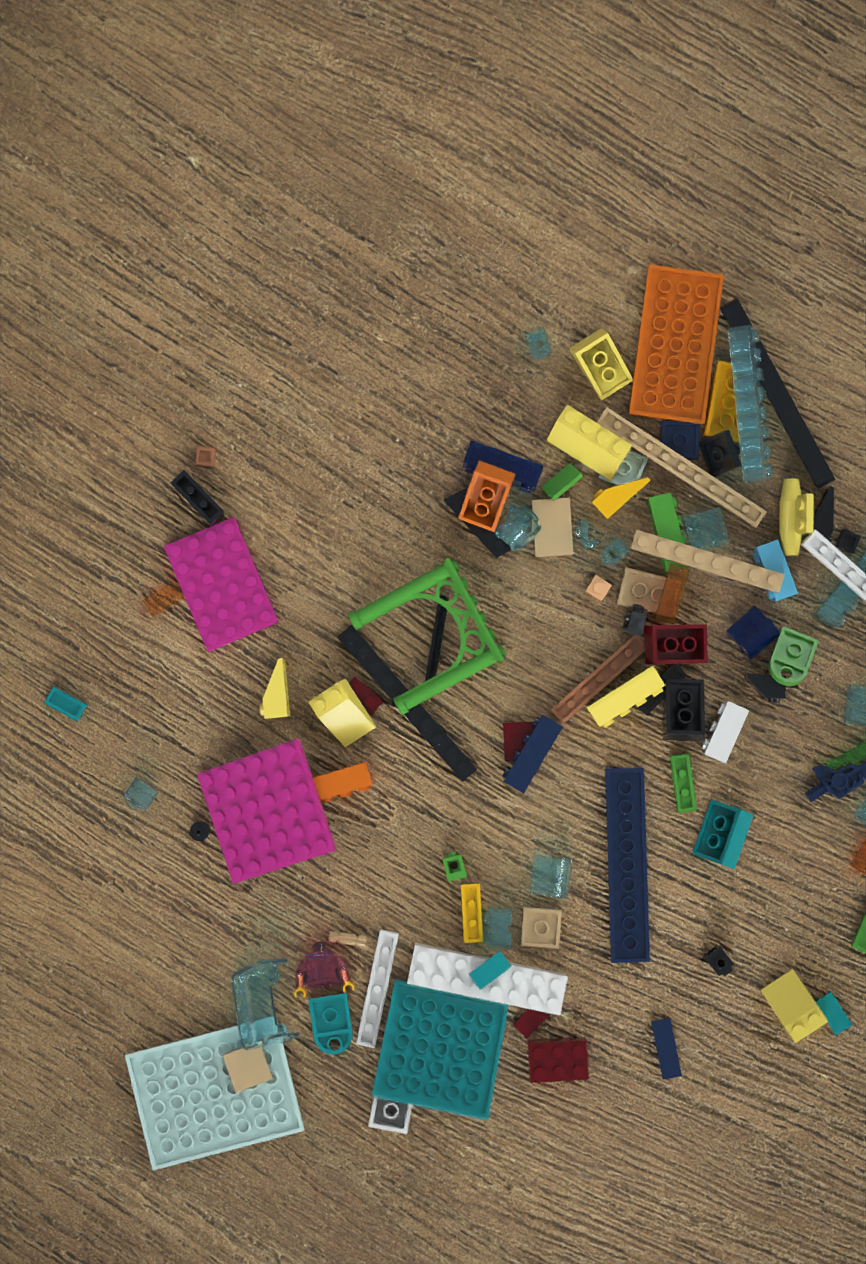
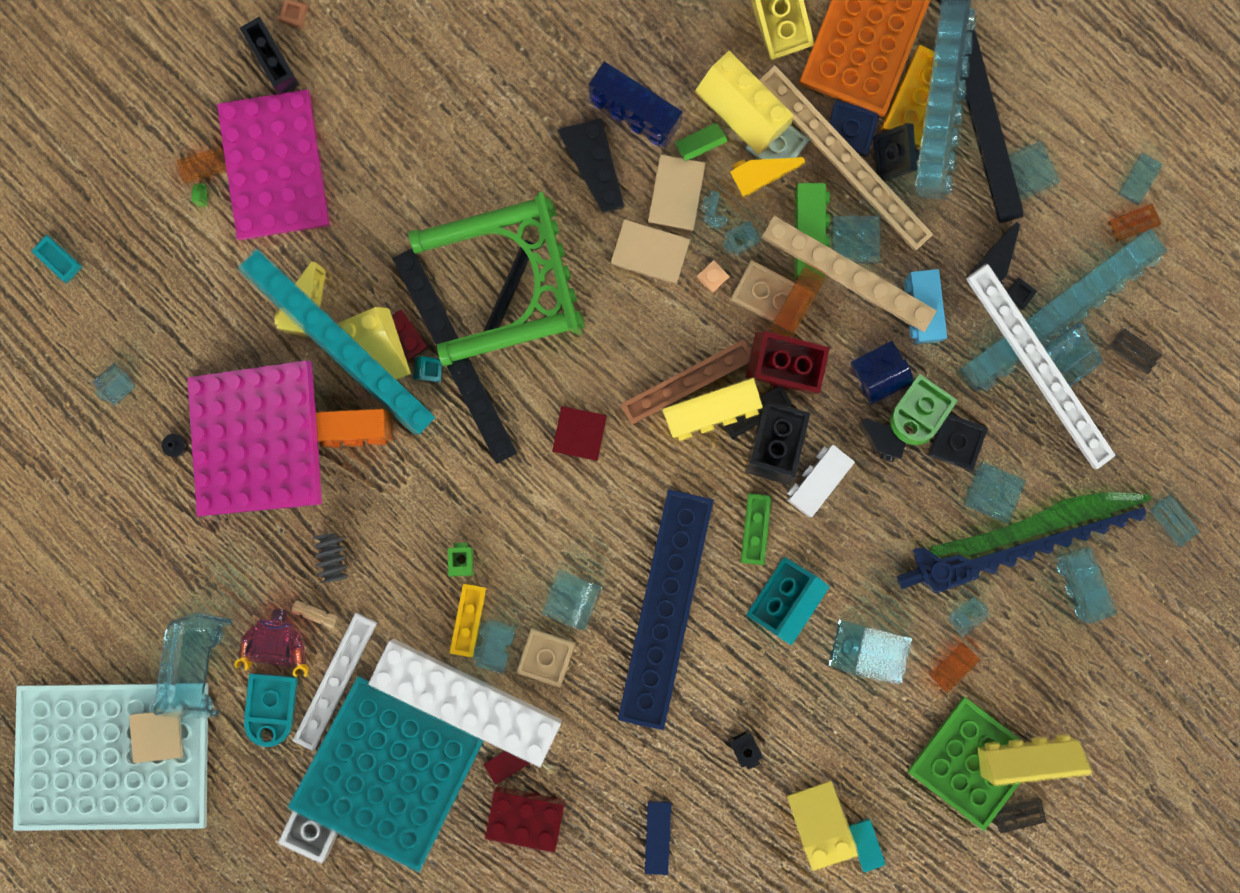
camera: 15 degrees right, 0 degrees up
(168, 623) = (199, 195): none -> bright green tile
(315, 719) = (335, 342): none -> teal brick
(350, 890) = (330, 557): none -> dark grey piece
(387, 719) = (427, 369): none -> teal slope
(486, 496) = (606, 130): orange brick -> none
(490, 970) = (469, 692): teal tile -> none
(518, 527) = (635, 180): clear light blue brick -> none
(532, 754) = (585, 450): dark blue brick -> none
(543, 580) = (650, 251): none -> tan tile
(635, 620) = (747, 323): black brick -> none
(794, 516) = (965, 247): light yellow plate -> none
(798, 859) = (870, 652): none -> clear light blue slope
(827, 673) = (958, 442): none -> black tile
(833, 439) = (1033, 170): none -> clear light blue tile

